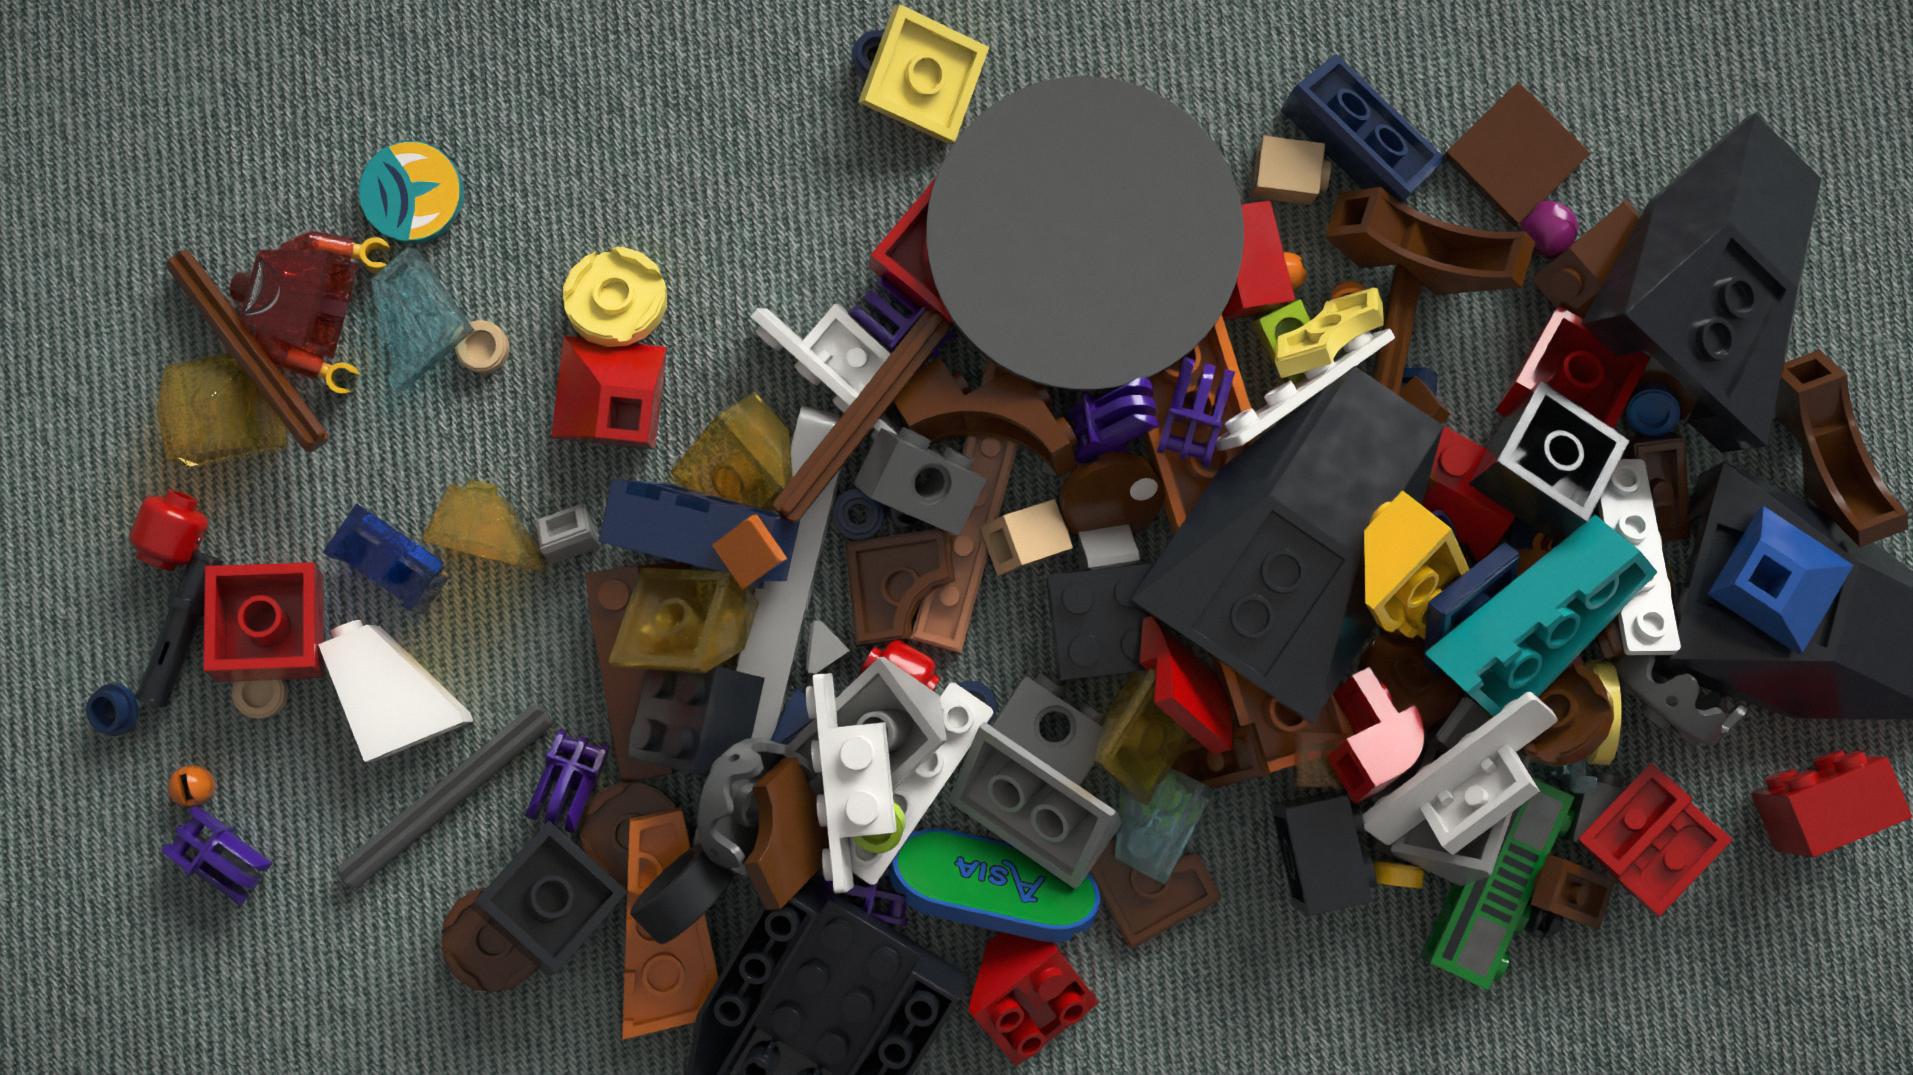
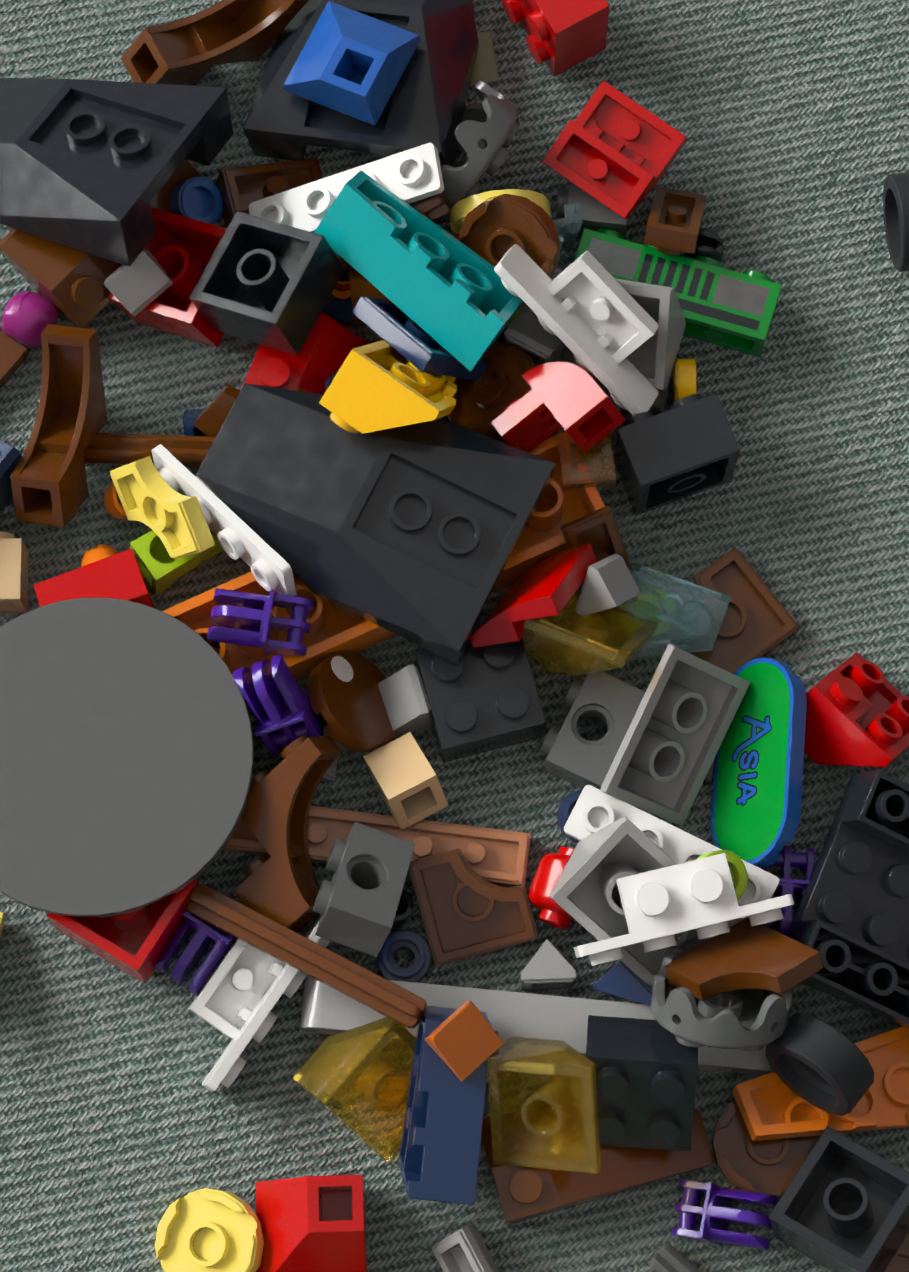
camera: 90 degrees left, 10 degrees down
(1186, 760) = (606, 586): none -> light grey slope
(1566, 336) = (139, 283): none -> light grey slope
(1771, 723) = (485, 63): none -> olive sticker

